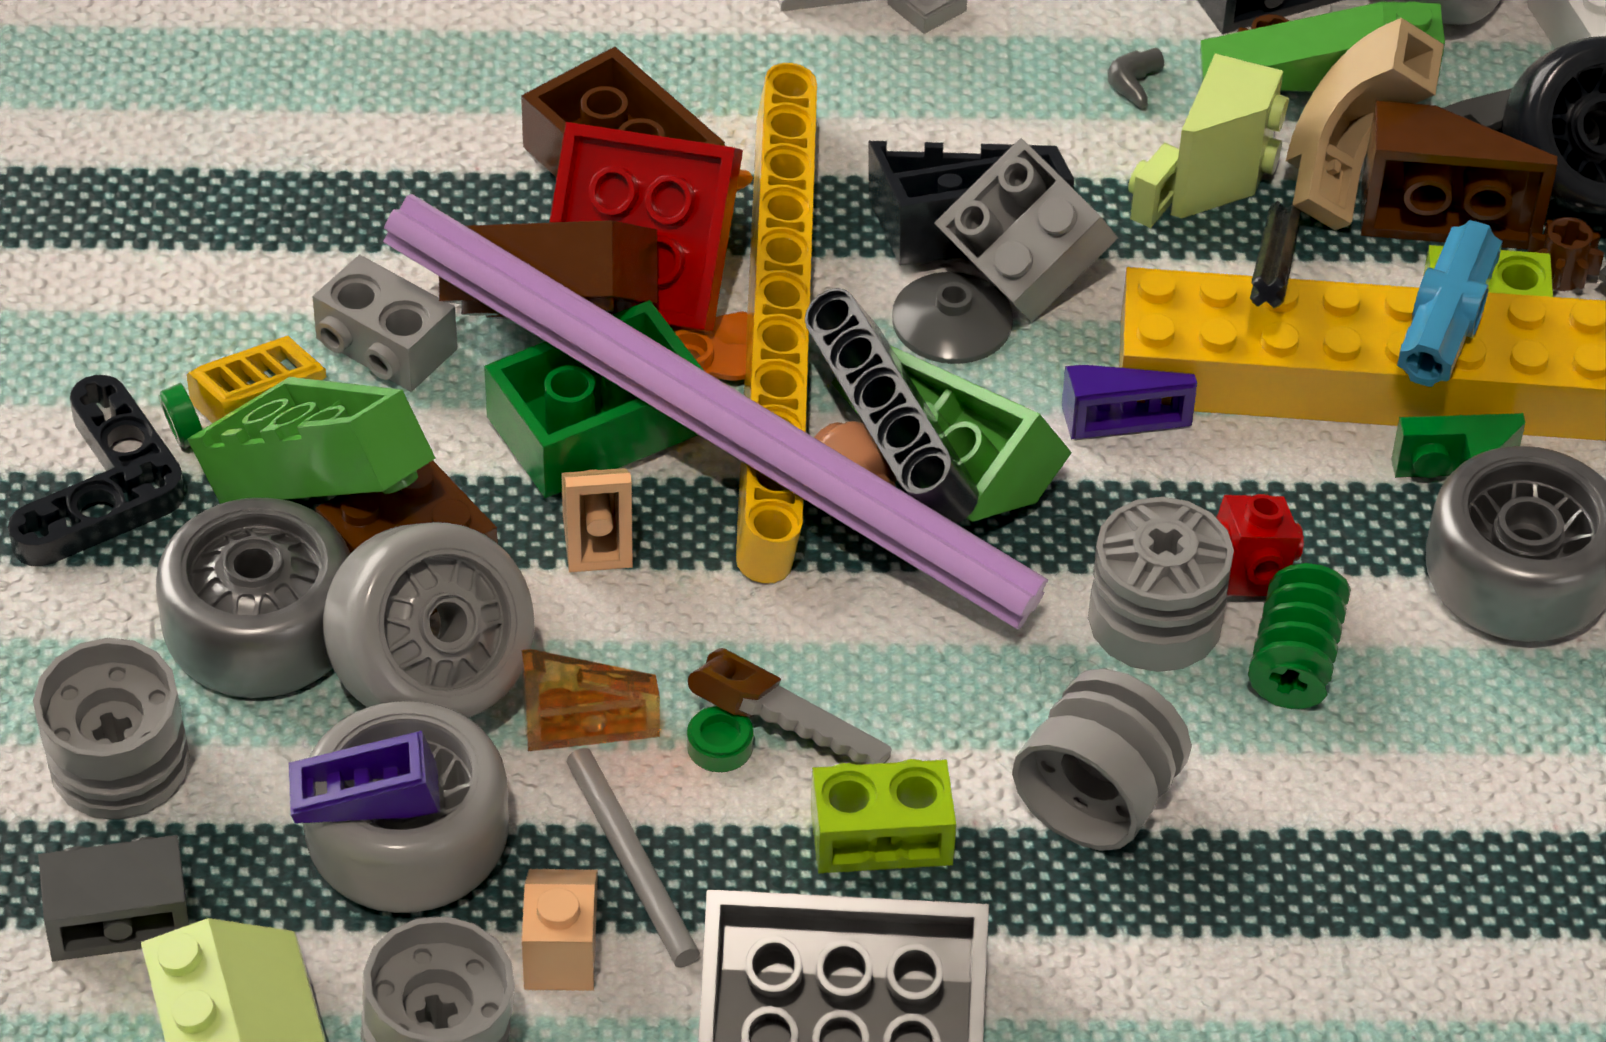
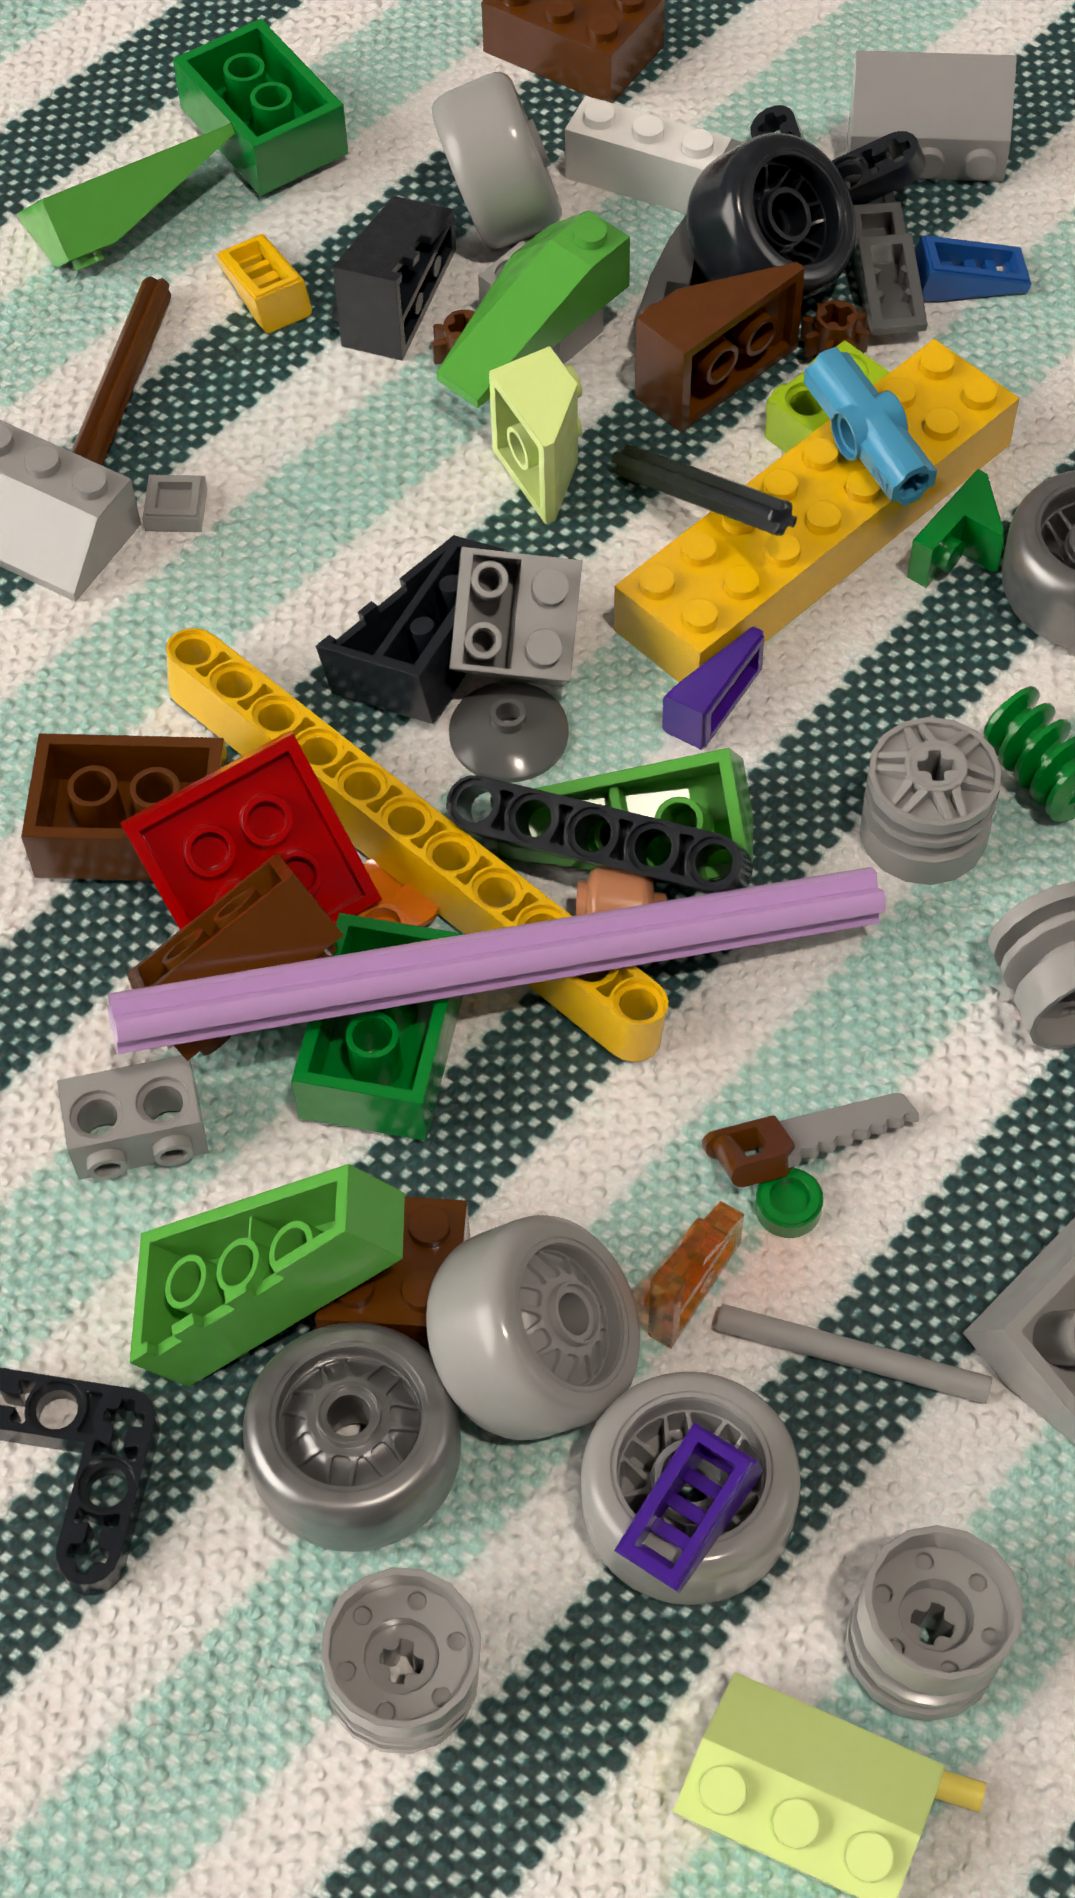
camera: 45 degrees left, 10 degrees up
(111, 896) = (567, 1791): dark grey brick -> none
(179, 413) = (77, 1346): green tile -> none
(223, 385) = (94, 1308): yellow slope -> none
(559, 929) = (888, 1454): light nougat slope -> none
(598, 519) = (500, 1114): light nougat slope -> none
(882, 816) = (985, 1152): lime brick -> none
(1130, 67) = (384, 442): dark grey animal -> none
(1153, 185) = (524, 508): yellowish green plate -> none
(1262, 540) = (943, 695): red brick -> none
(1336, 123) = (600, 333): tan arch -> none

